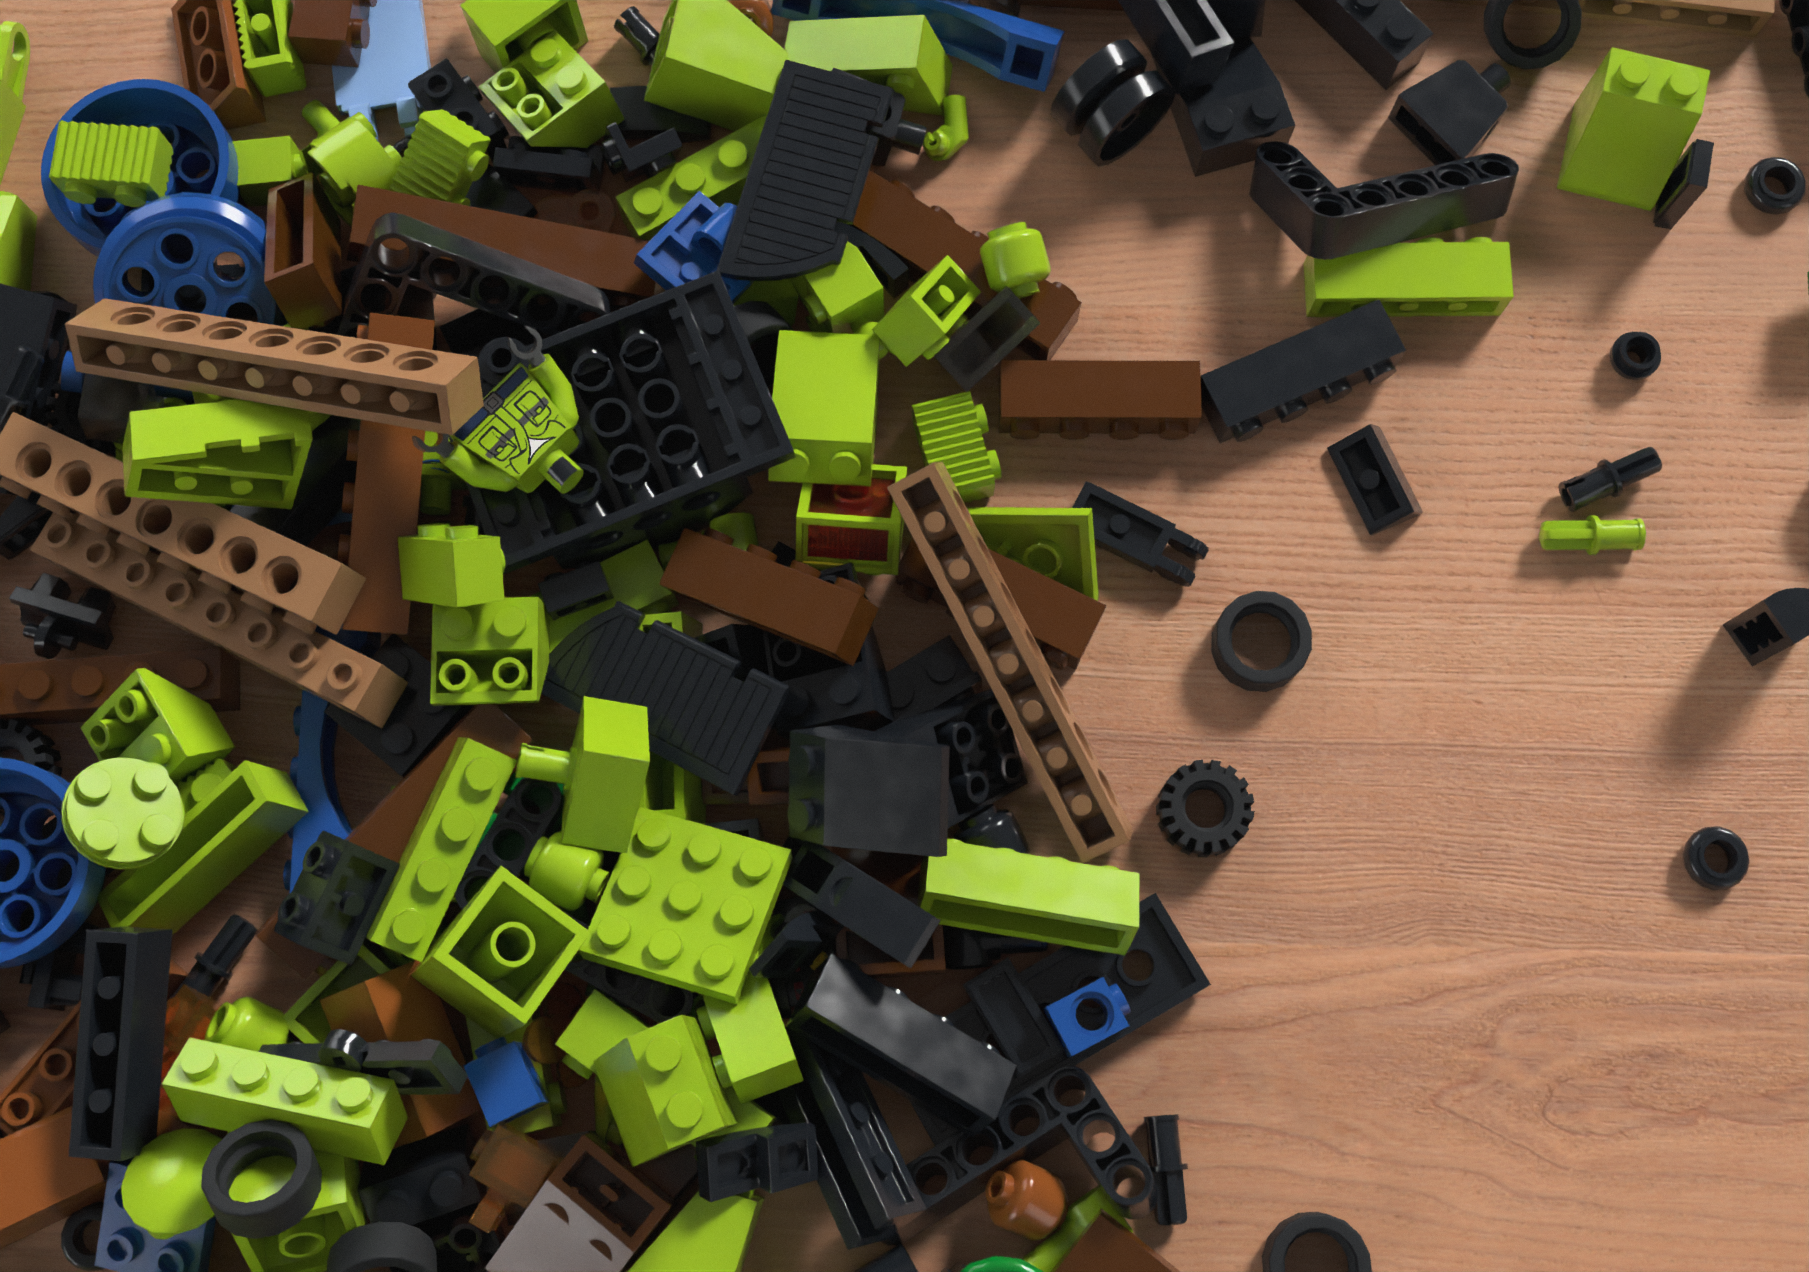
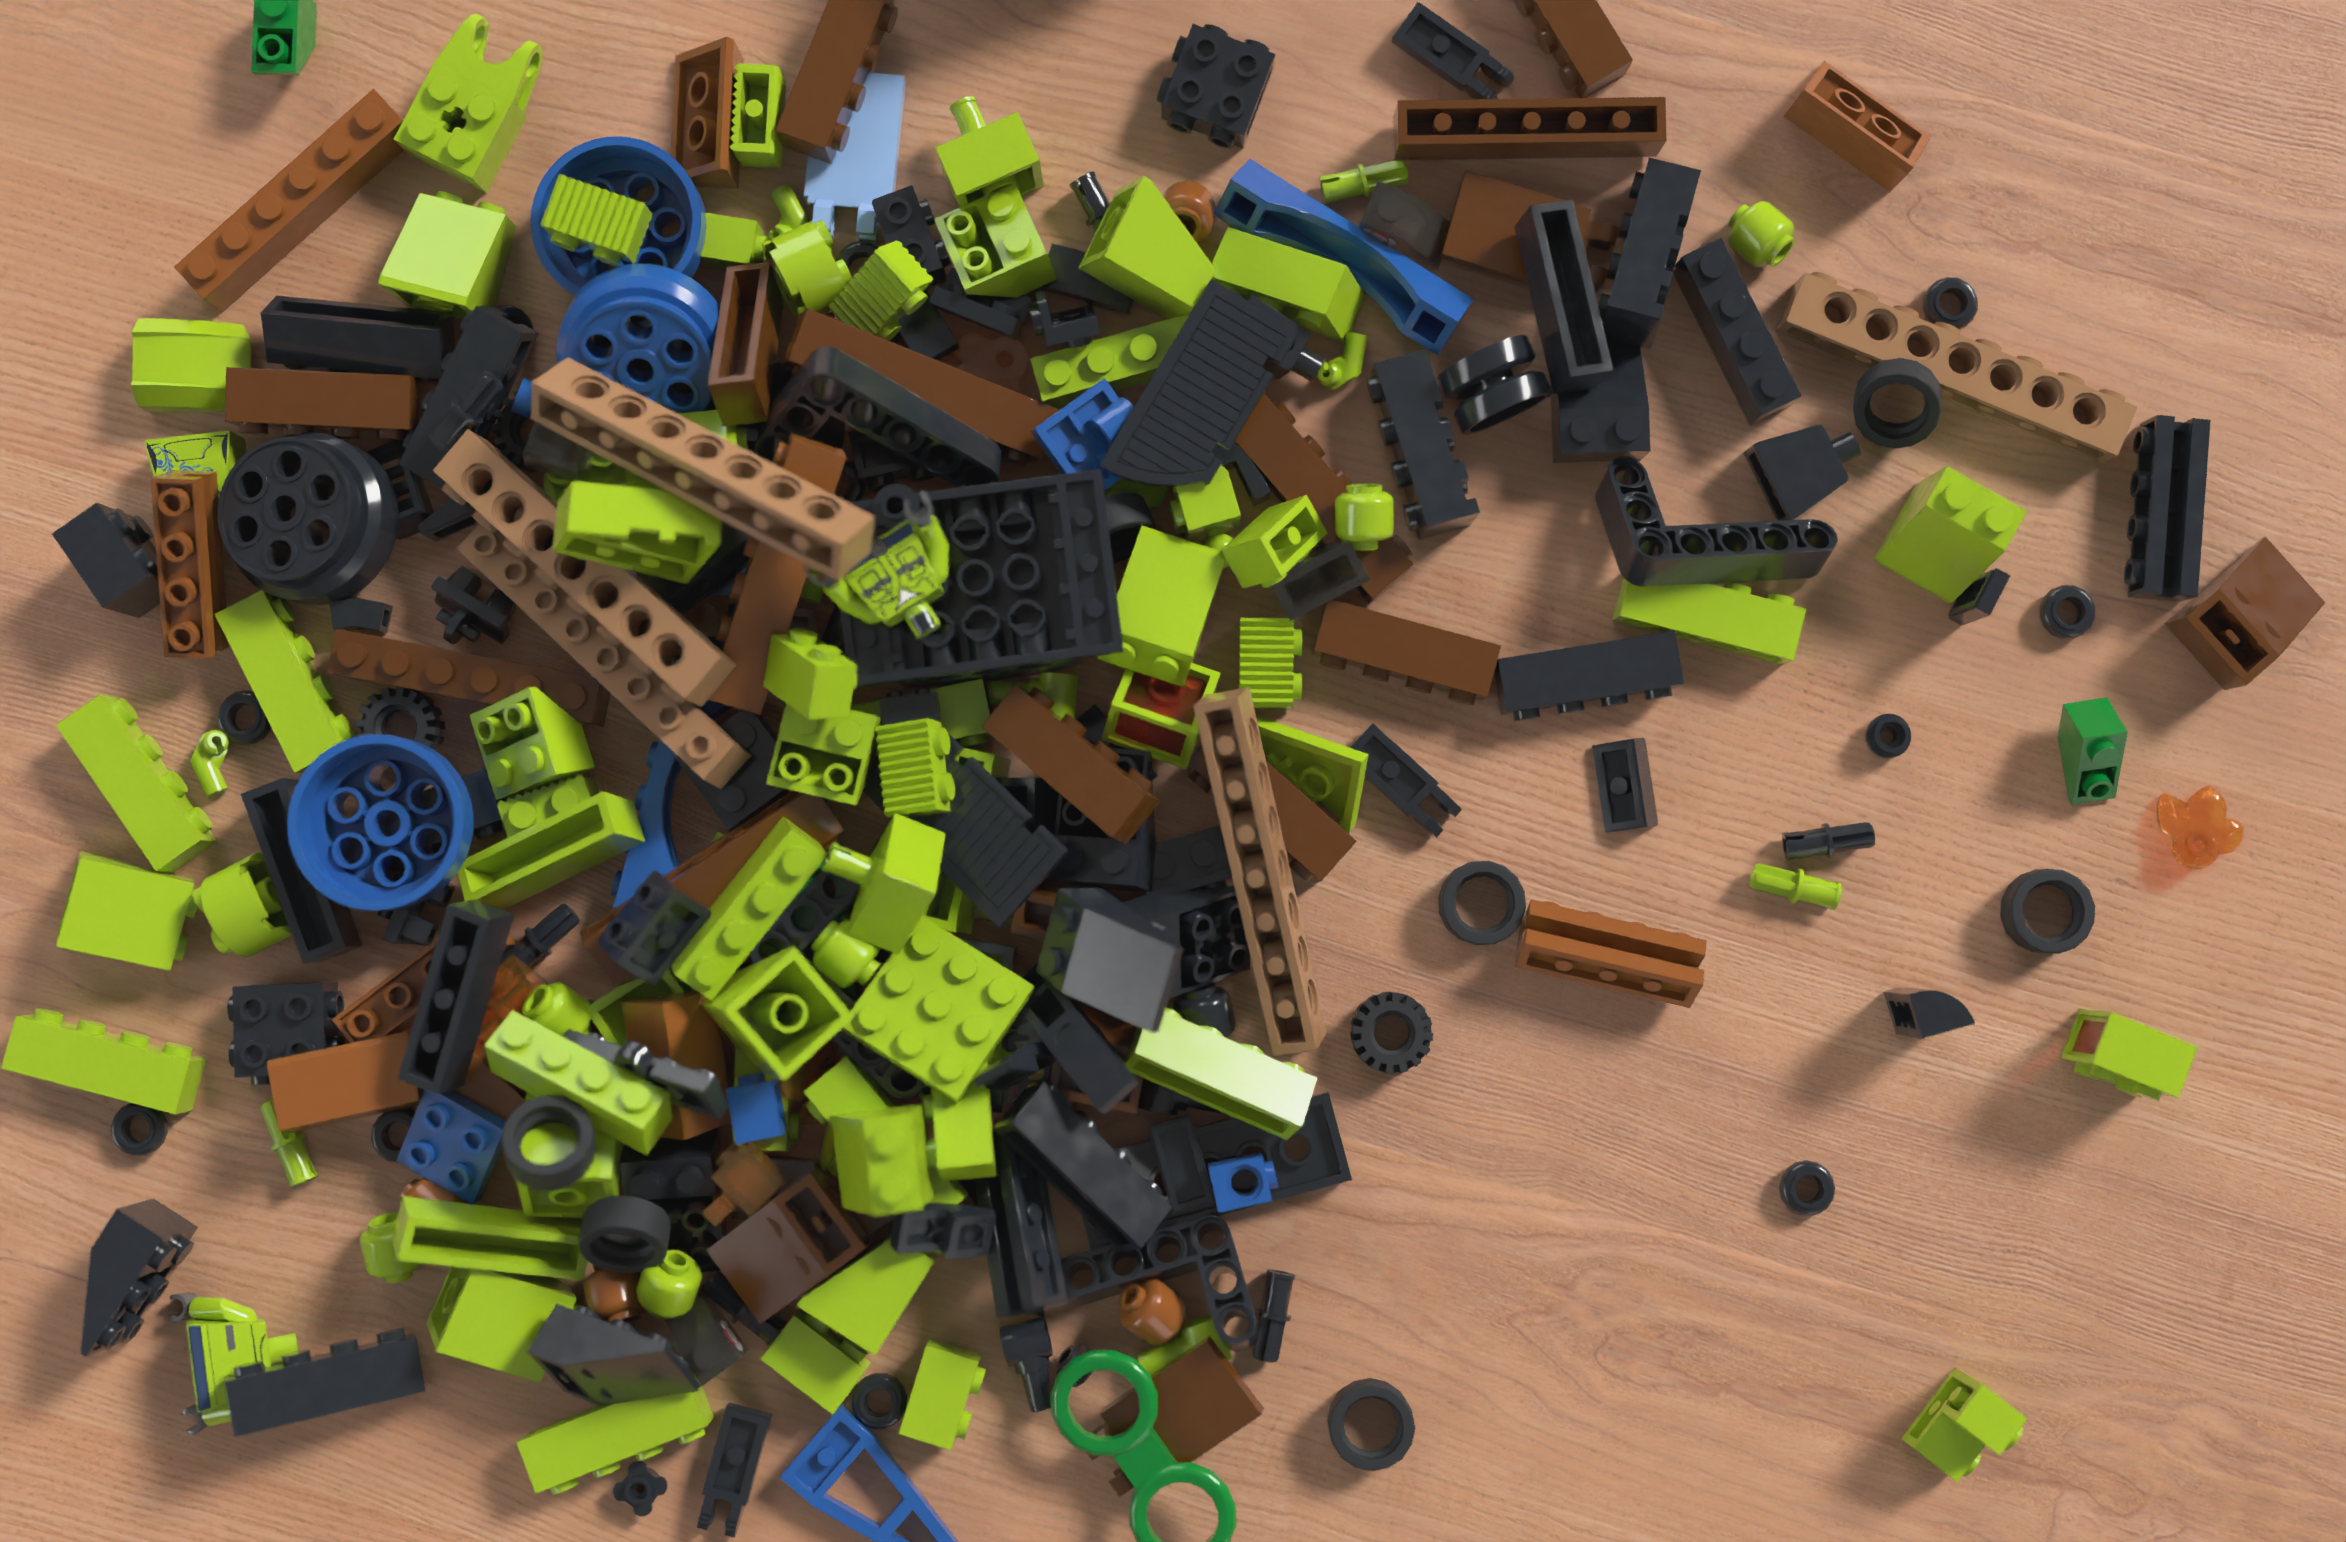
camera: 15 degrees right, 10 degrees up
(122, 813) = (494, 809): lime piece -> none
(165, 1181) = (473, 1118): lime dish -> none
(595, 645) = (915, 768): none -> lime brick
(1056, 188) = (1421, 445): none -> black wedge
(1420, 655) = (1611, 953): none -> dark orange brick

